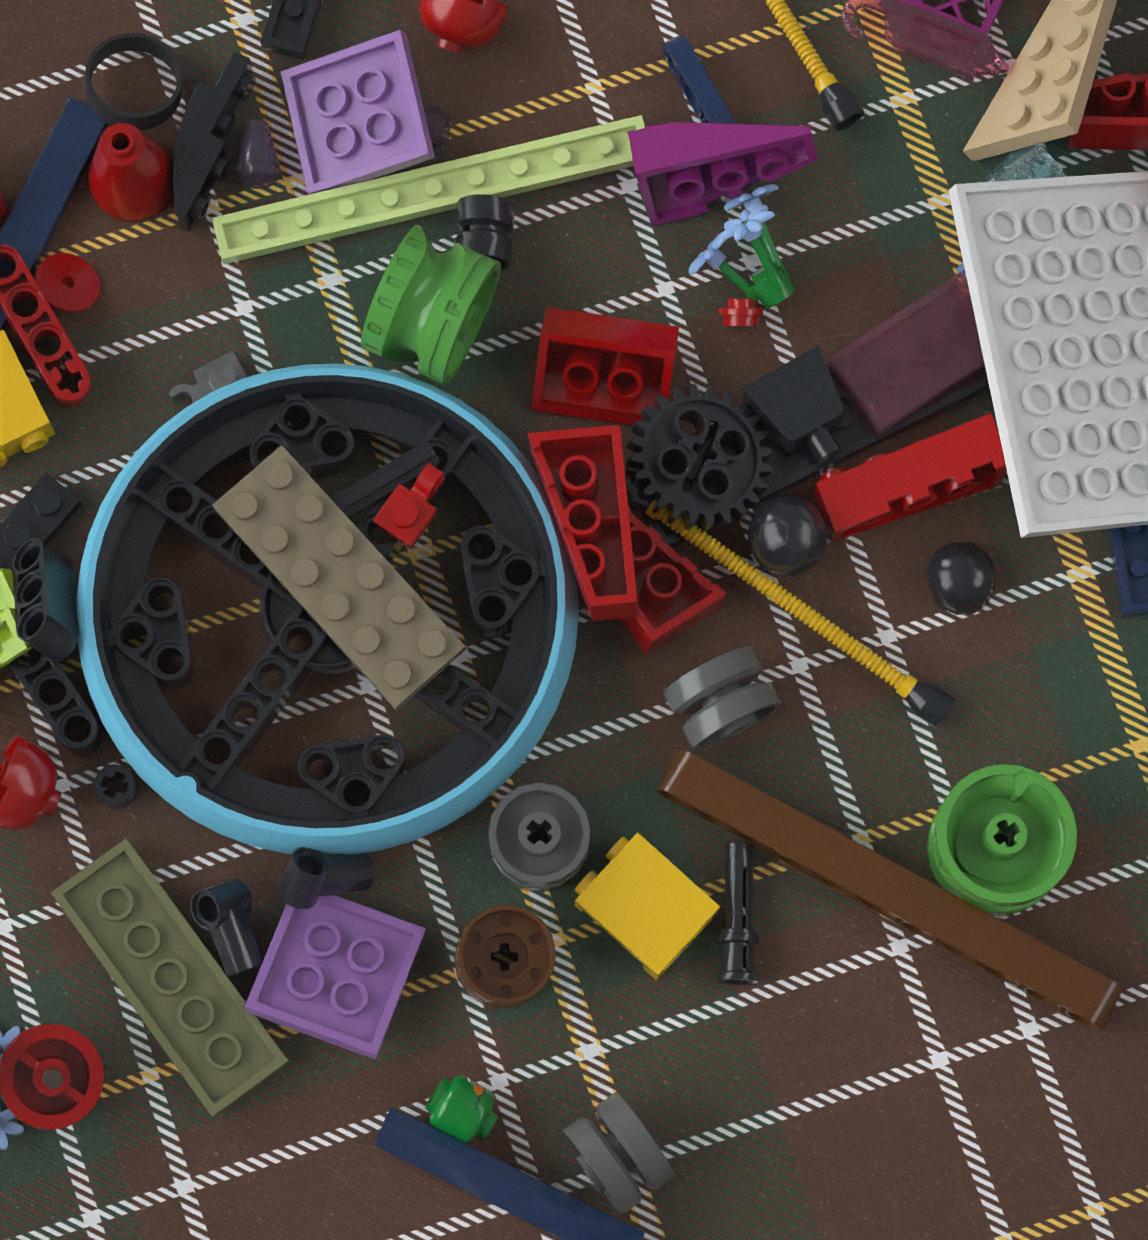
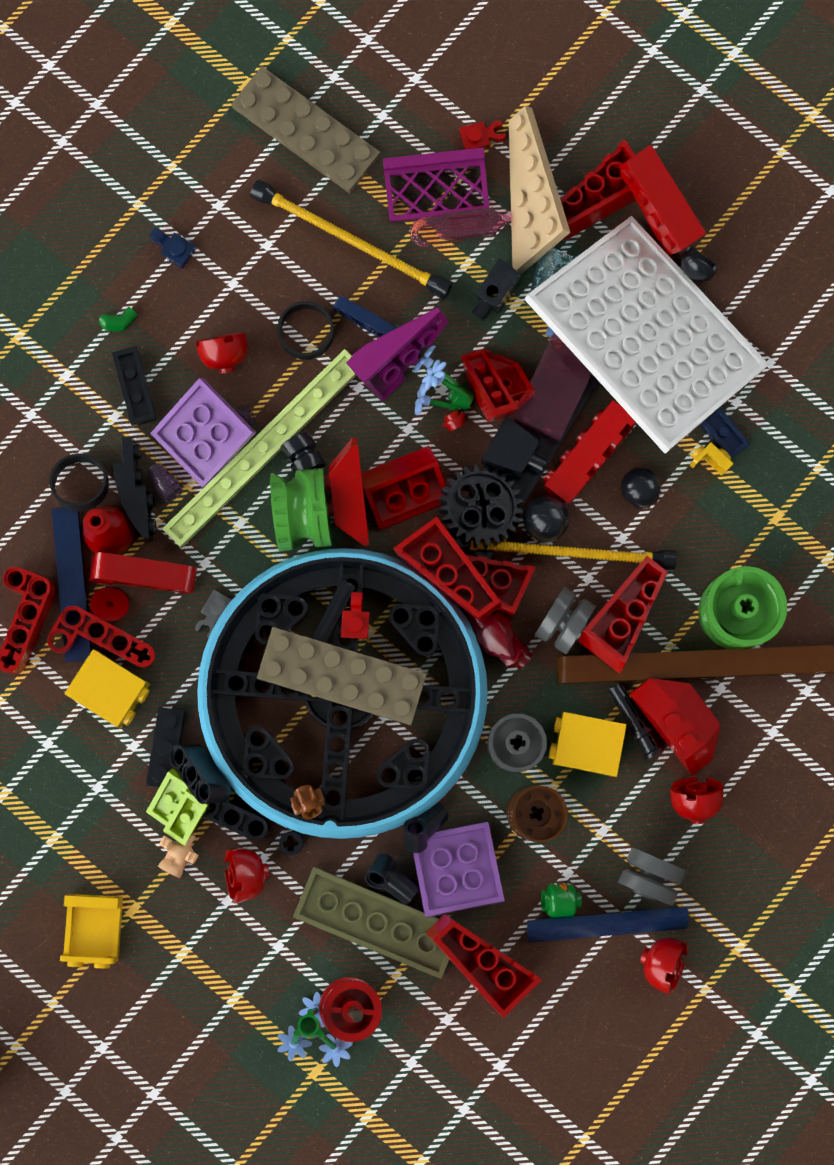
camera: 25 degrees left, 5 degrees up
(144, 264) = (141, 572): none -> red beam
(175, 728) = (307, 802): none -> dark orange gear
(288, 1139) = (488, 969): none -> red wedge
(512, 322) = (347, 493): none -> red wedge
(601, 14) = (305, 305): none -> black tyre
(606, 667) = (499, 640): none -> dark red animal
(758, 1084) = (696, 799): none -> red cylinder
(806, 952) = (680, 720): none -> red wedge
(811, 743) = (621, 619): none -> red wedge
(836, 294) = (496, 383): none -> red wedge
(937, 154) = (502, 280): none -> black torso
(1103, 600) = (717, 458): none -> yellow bracket

